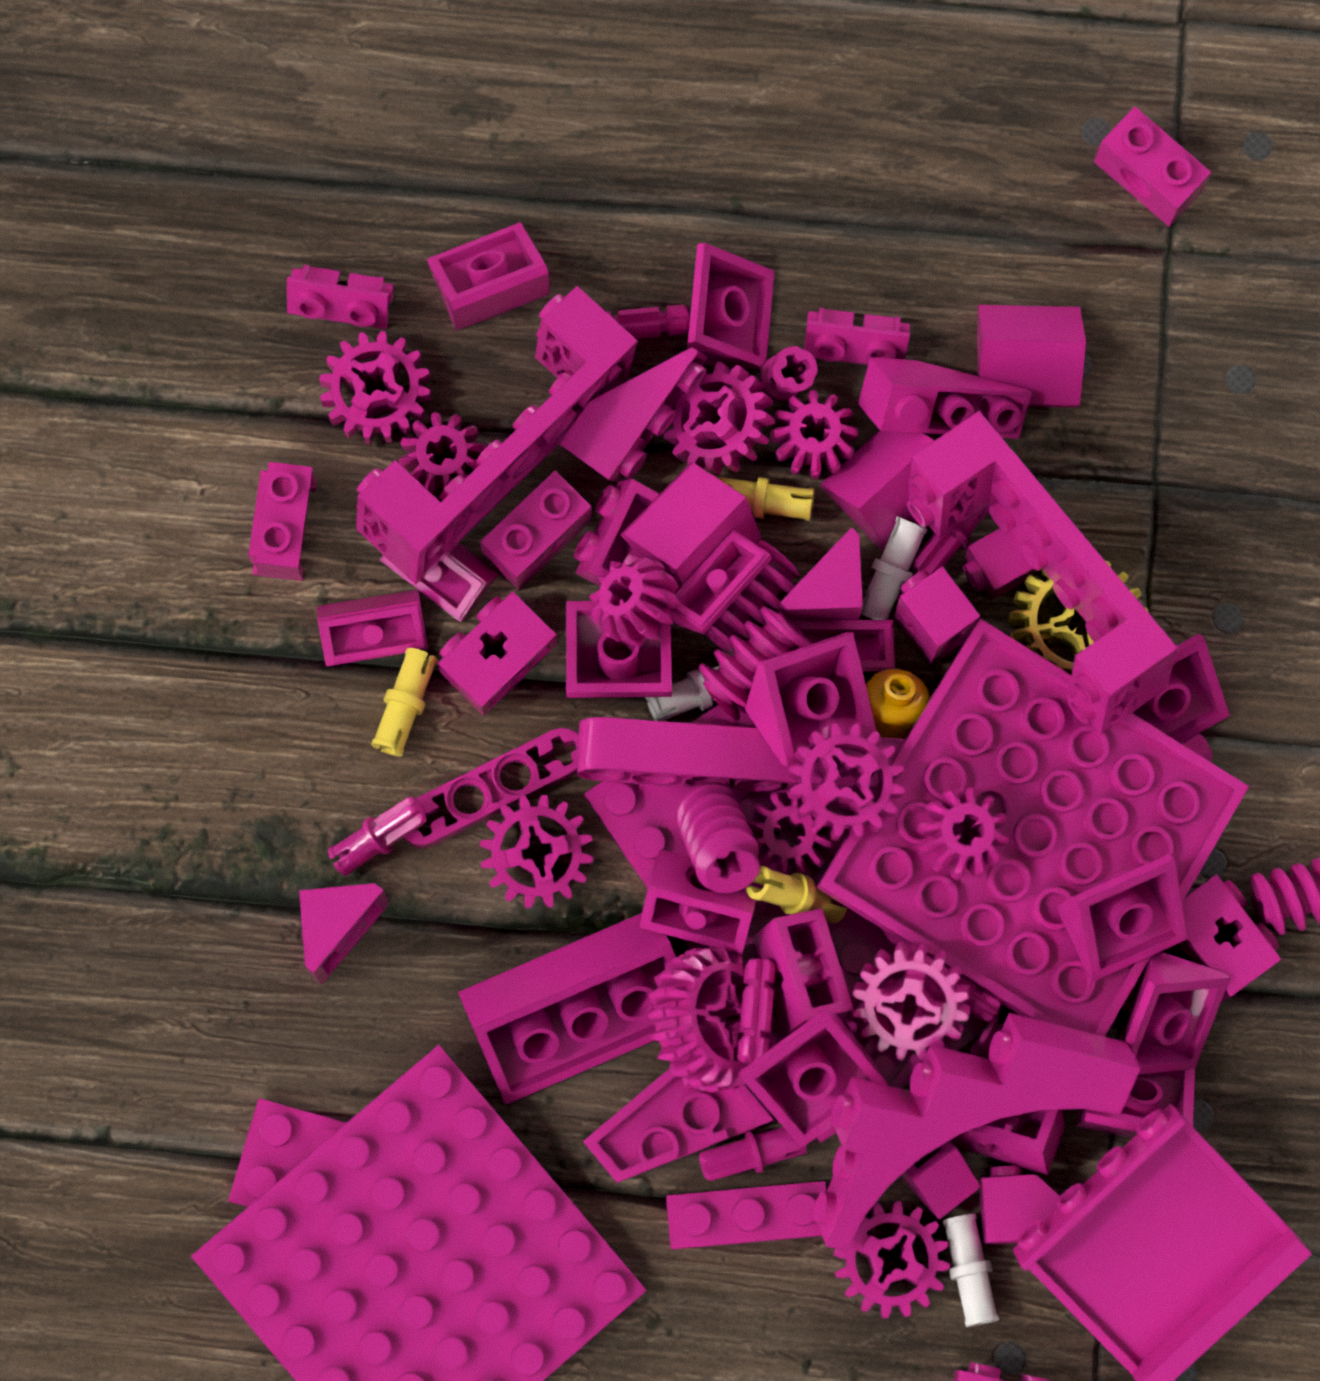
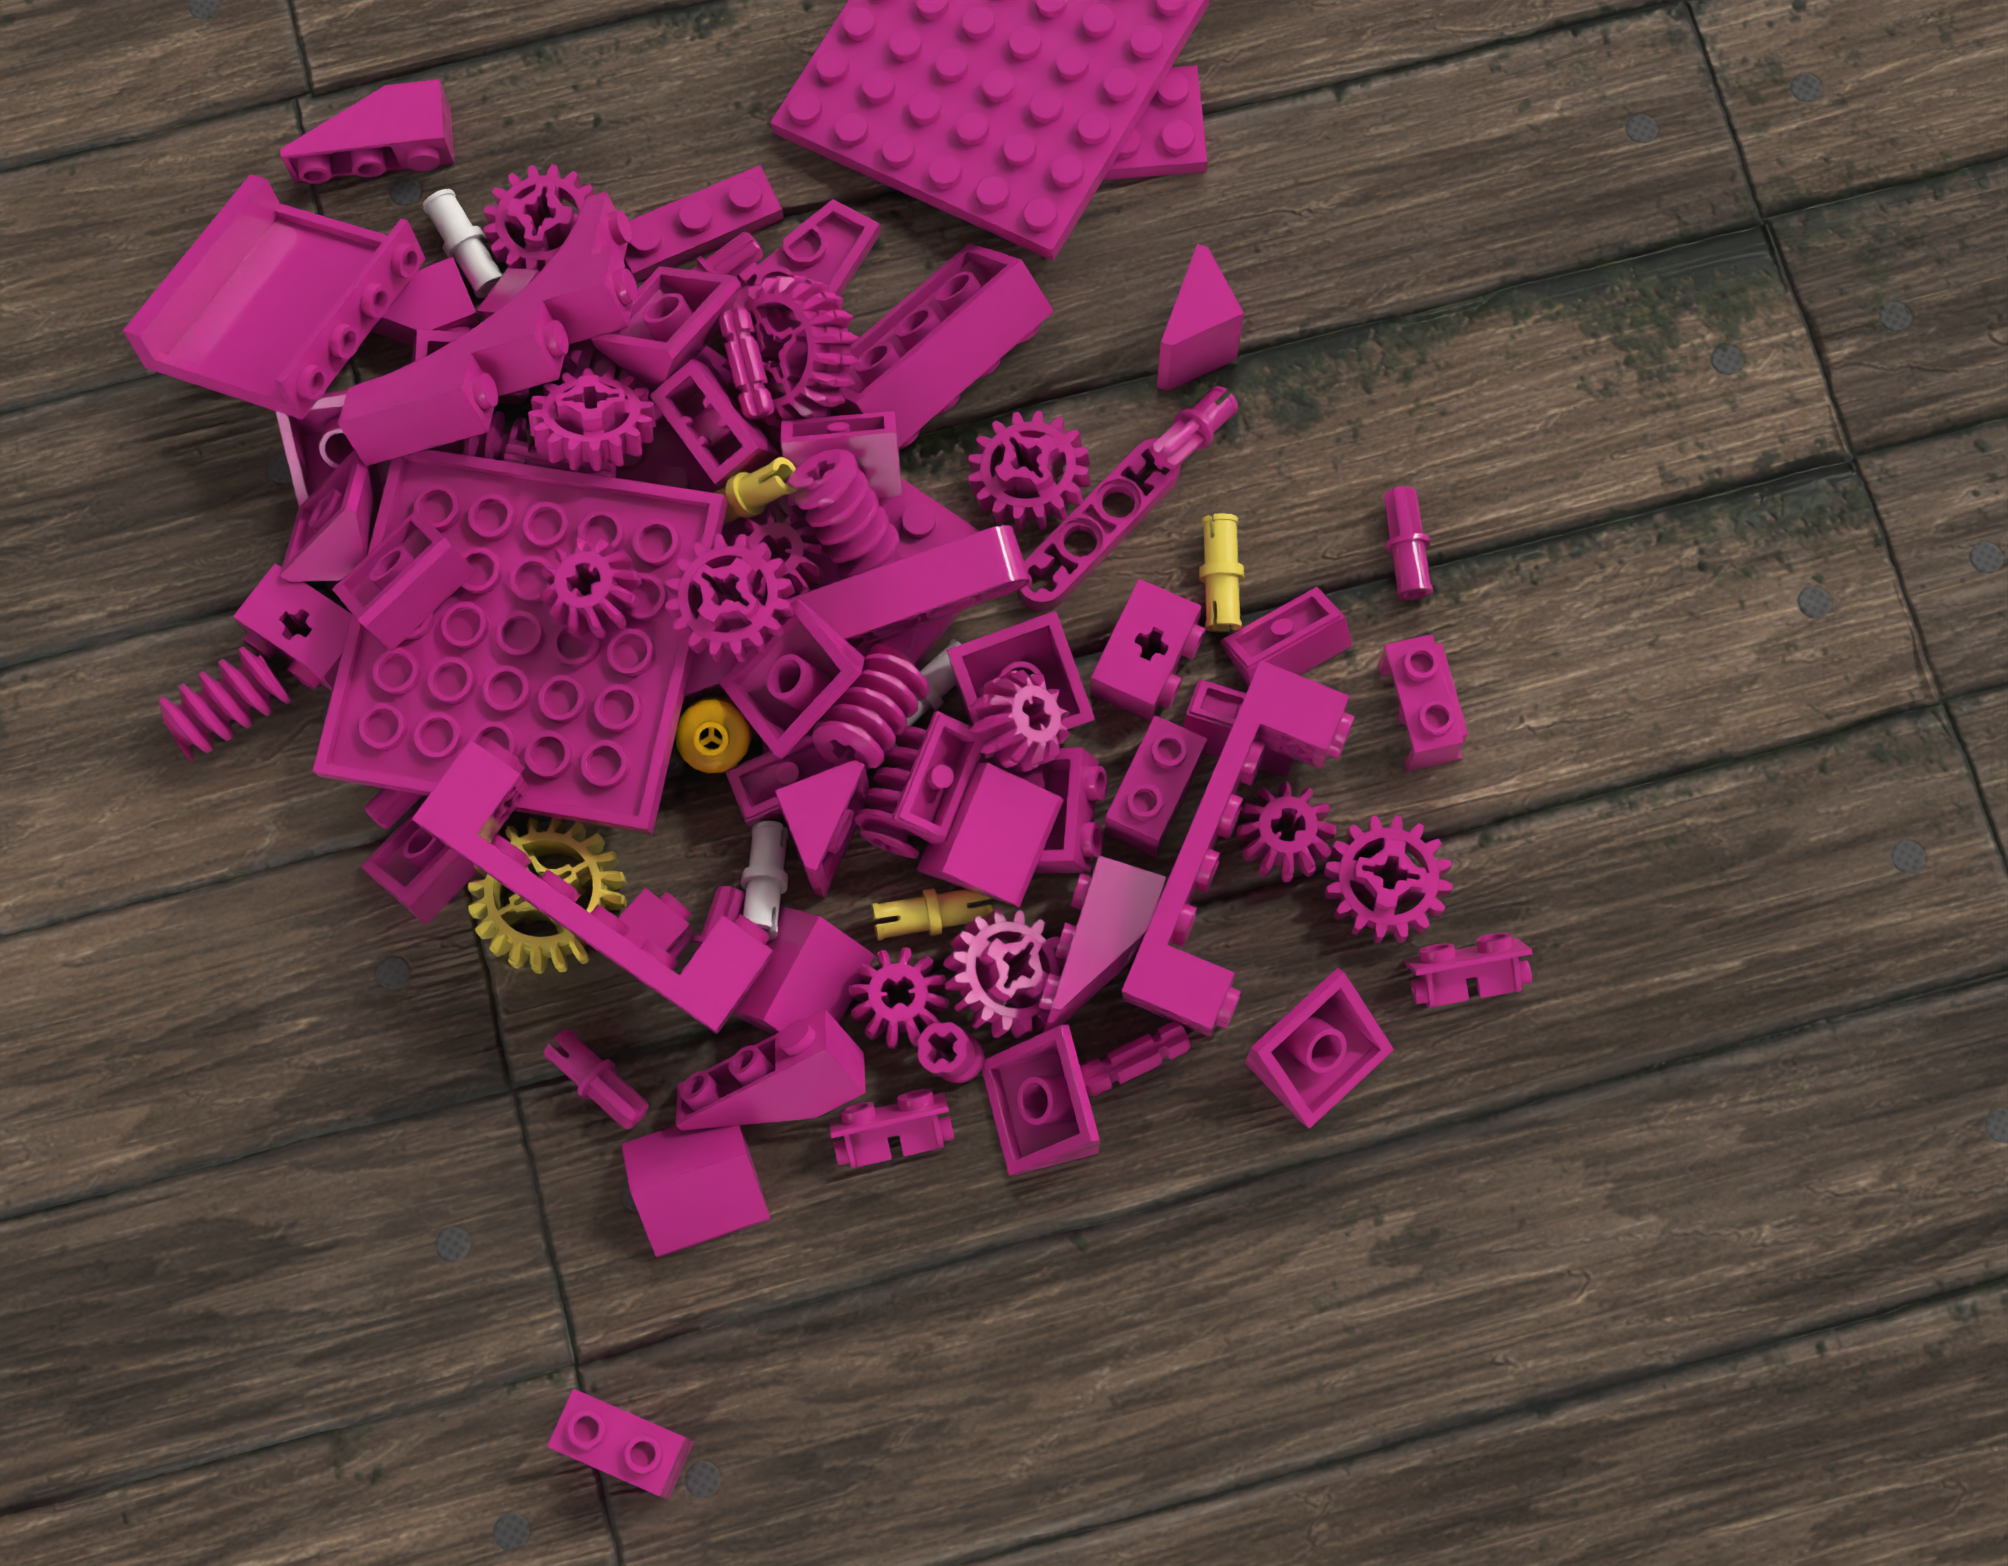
camera: 165 degrees right, 5 degrees down
(233, 672) = (1407, 543): none -> dark pink axle
(934, 614) = (700, 835): dark pink brick -> none
(1084, 459) = (596, 1079): none -> dark pink axle

